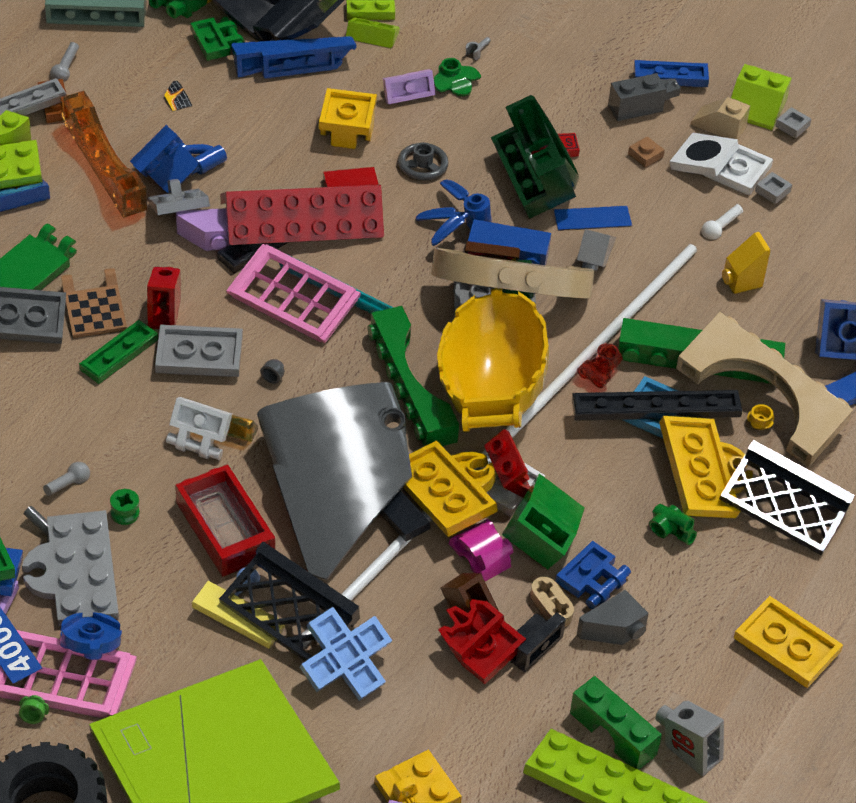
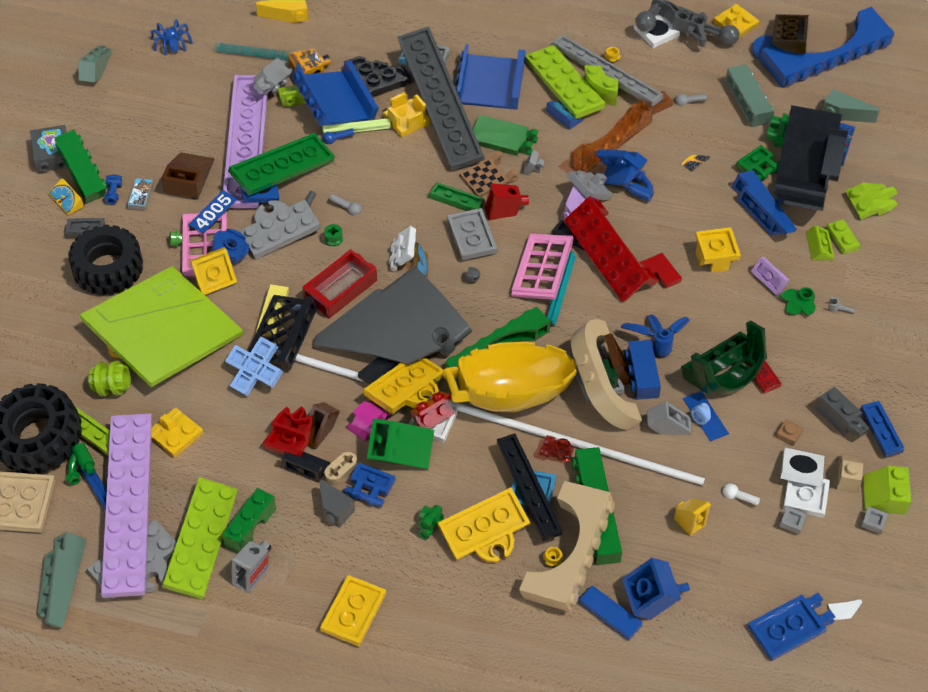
camera: 75 degrees right, 5 degrees up
(100, 249) = (533, 163): none -> light grey tile
(138, 662) = (213, 271): none -> yellow hinge
(423, 158) = (706, 300): dark grey piece -> none
(598, 215) = (701, 413): none -> light blue tile
(792, 477) = (493, 591): fence -> none

